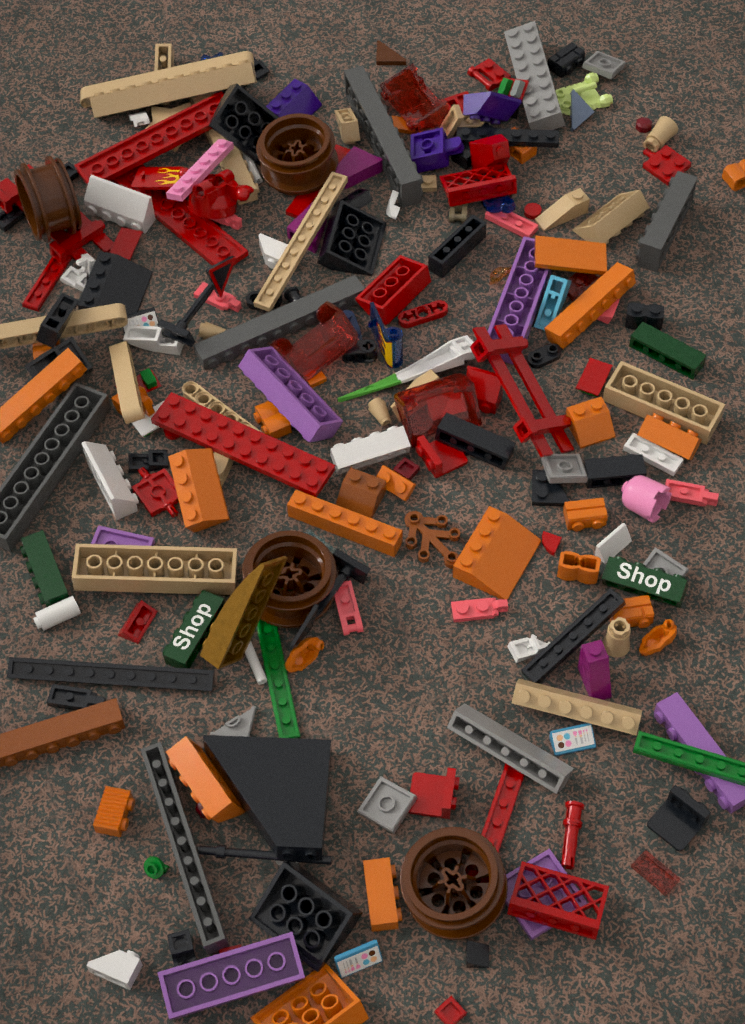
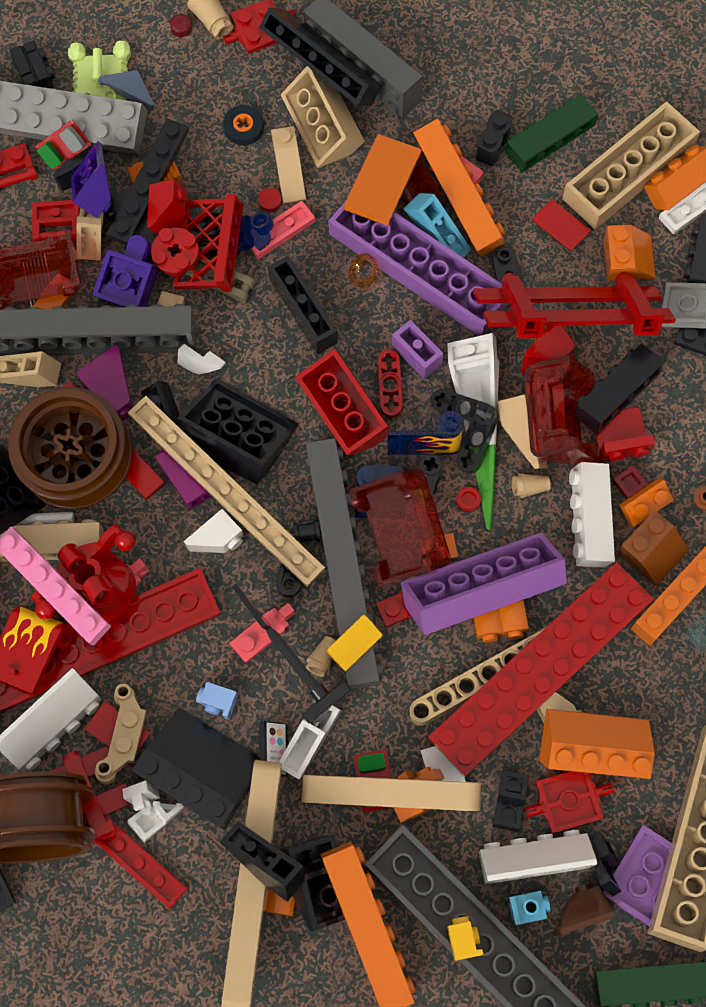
camera: 70 degrees left, 15 degrees up
(39, 440) = (463, 939): none -> yellow brick
(76, 486) = (518, 908): none -> medium azure brick
(81, 514) = (583, 909): none -> reddish brown slope
(118, 518) = (606, 862): none -> black slope
(123, 245) = (125, 735): none -> tan plate
(162, 286) = (217, 700): none -> light blue brick
(222, 335) = (354, 643): none -> yellow slope
(355, 381) = (468, 499): none -> red tile
(407, 368) = (476, 425): none -> black beam
(452, 317) = (417, 349): none -> medium lavender brick
(454, 162) = (181, 262): none -> red plate
(591, 179) = (243, 135): none -> black bush
(604, 64) = (59, 30): light grey plate -> none
(648, 193) = (320, 57): none -> black brick

